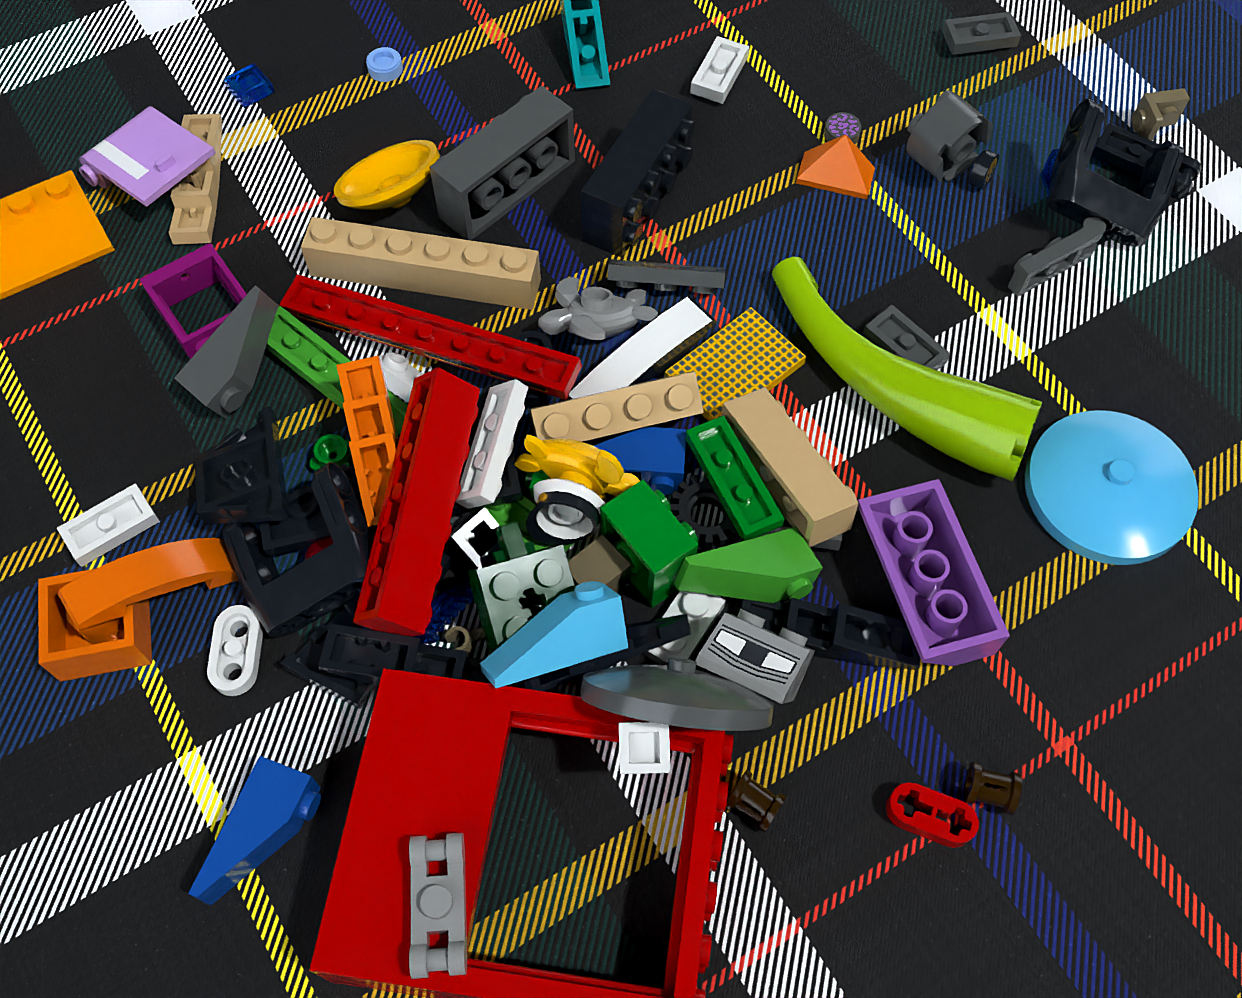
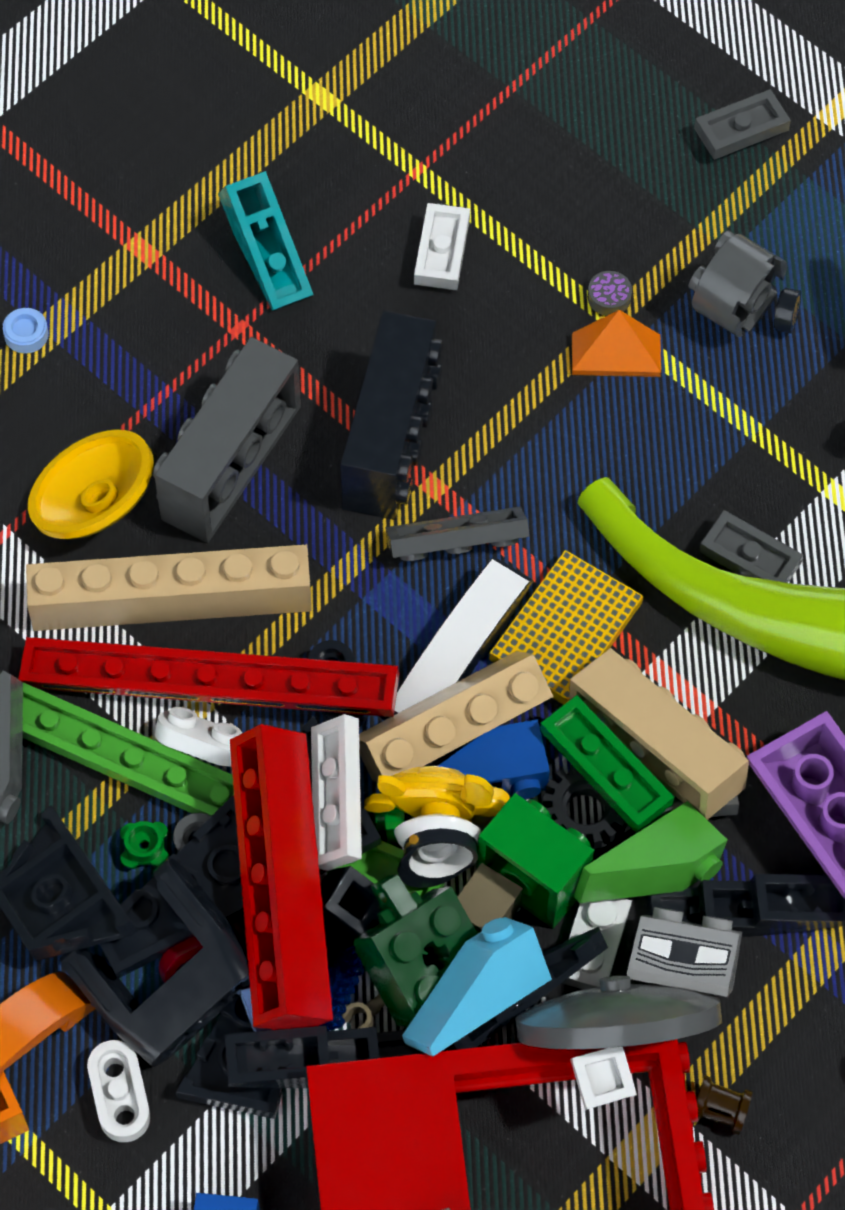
camera: 15 degrees left, 0 degrees up
(370, 430) = (196, 813): orange slope -> none
(596, 312) = (392, 601): light grey animal -> none

